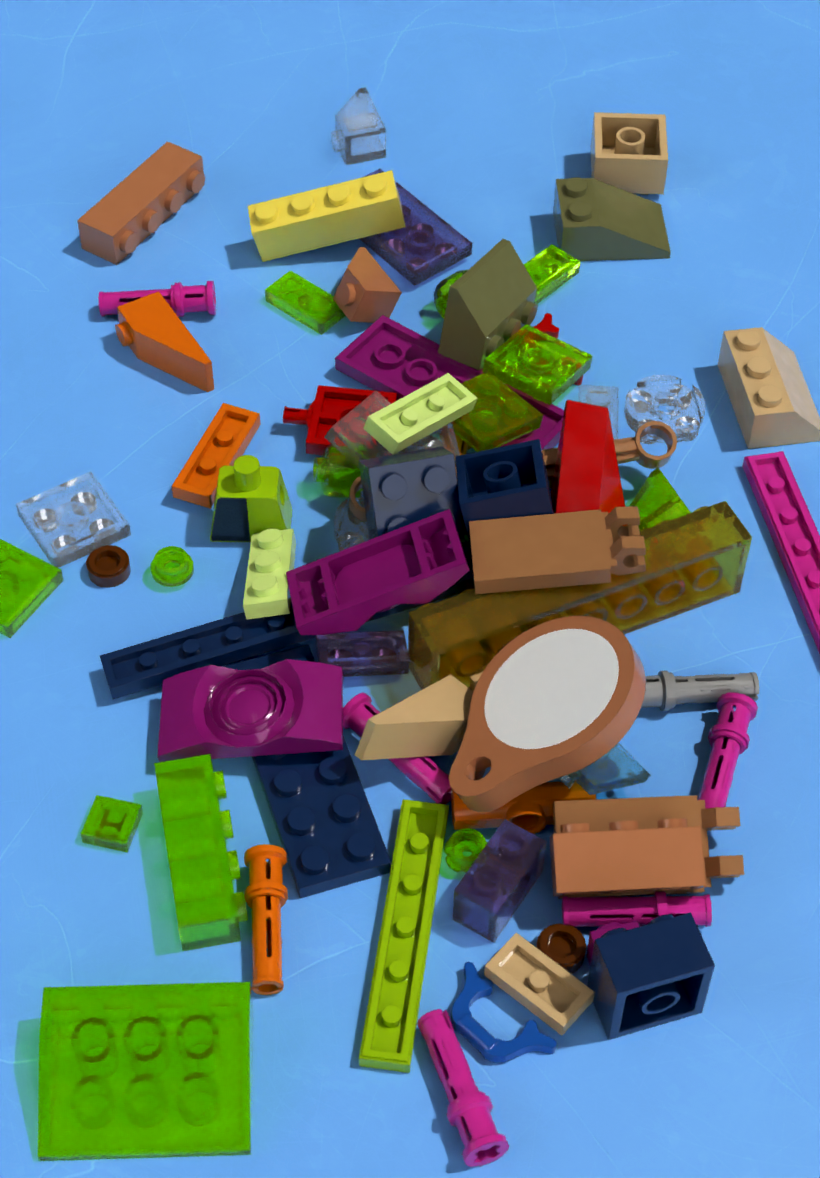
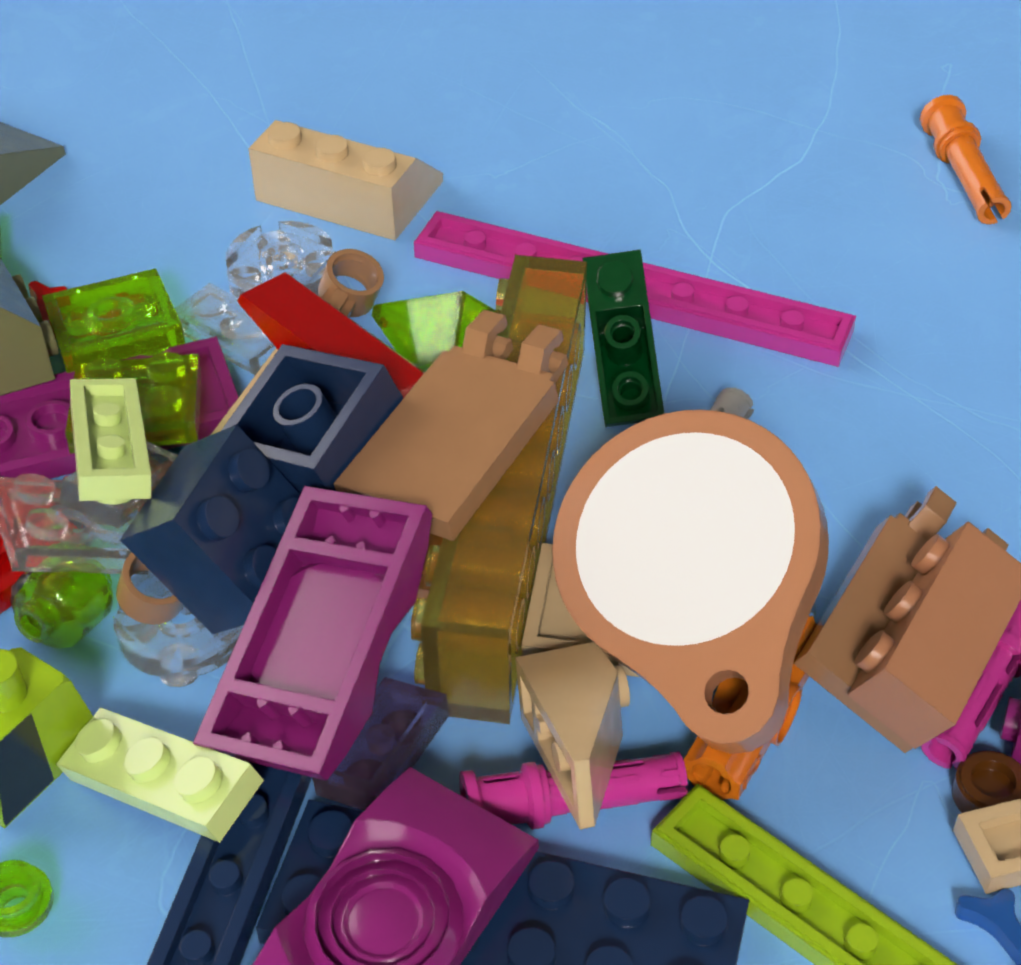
camera: 55 degrees left, 5 degrees down
(463, 841) = (789, 789): clear neon green plate -> none
(499, 880) = (867, 789): clear purple brick -> none
(727, 741) = (838, 496): dark pink pin -> none
(752, 599) = (623, 338): none -> dark green slope

